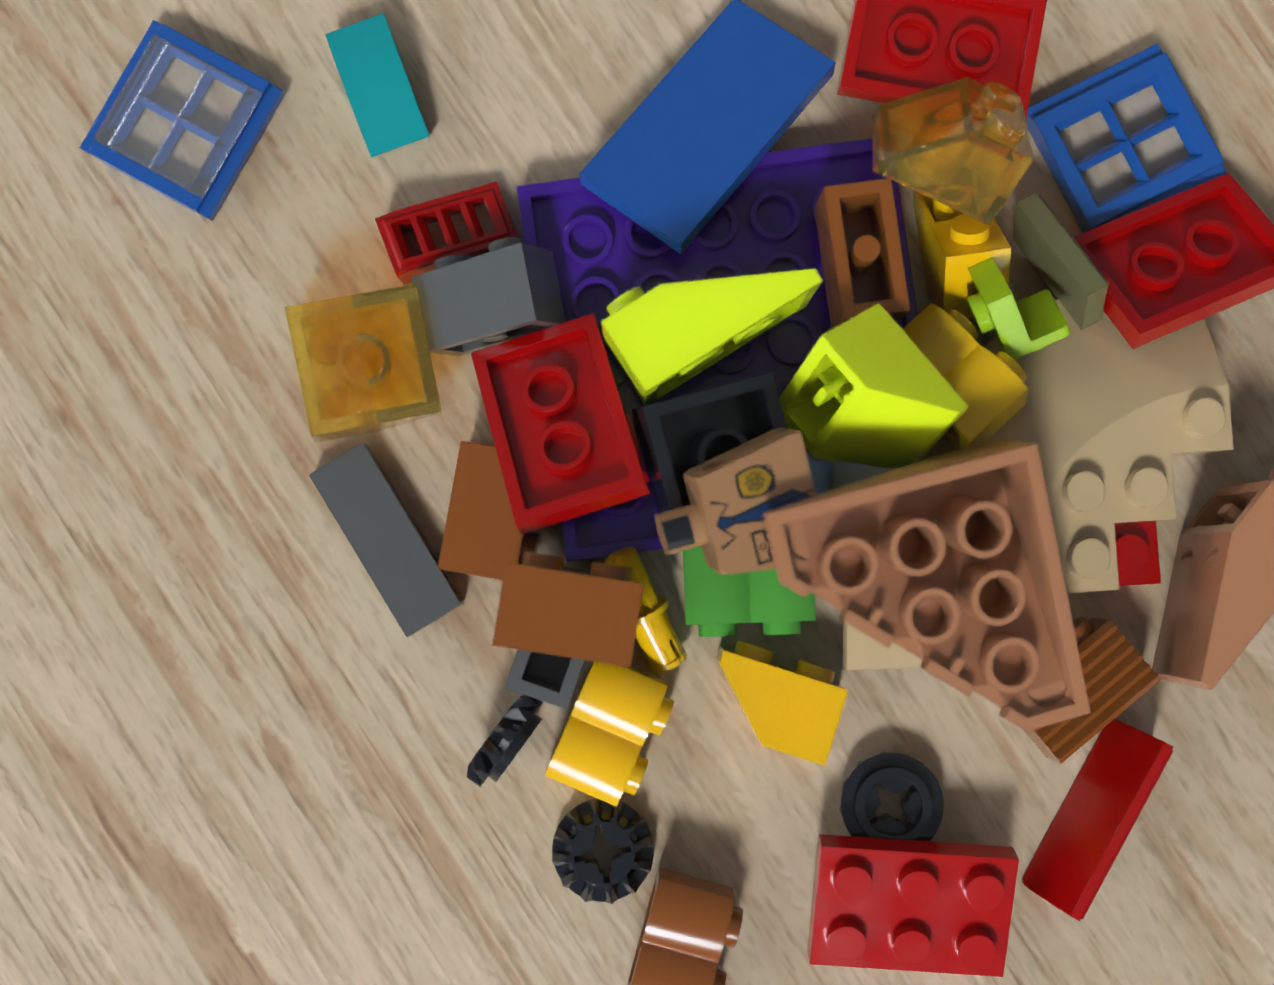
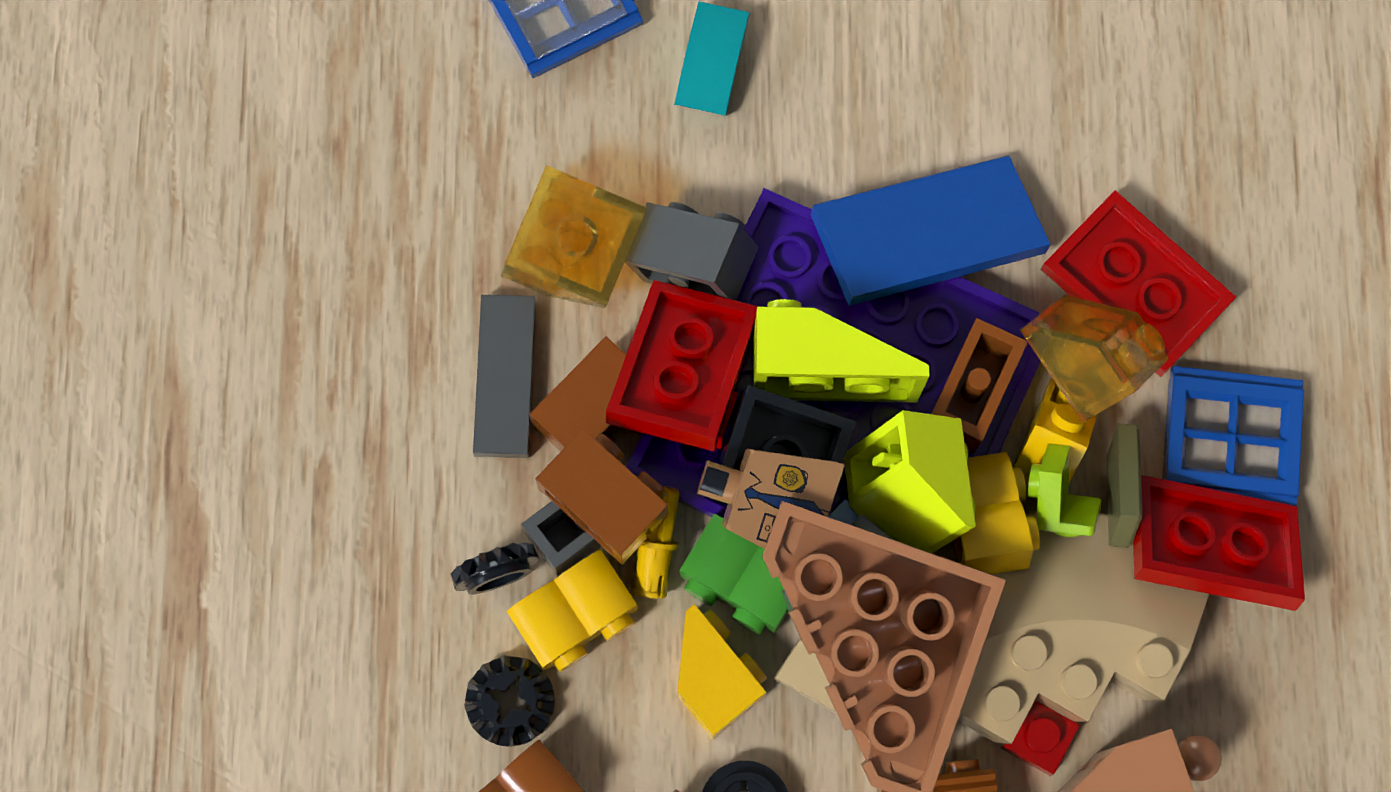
camera: 30 degrees right, 10 degrees down
(440, 210) = (683, 166): red slope -> none

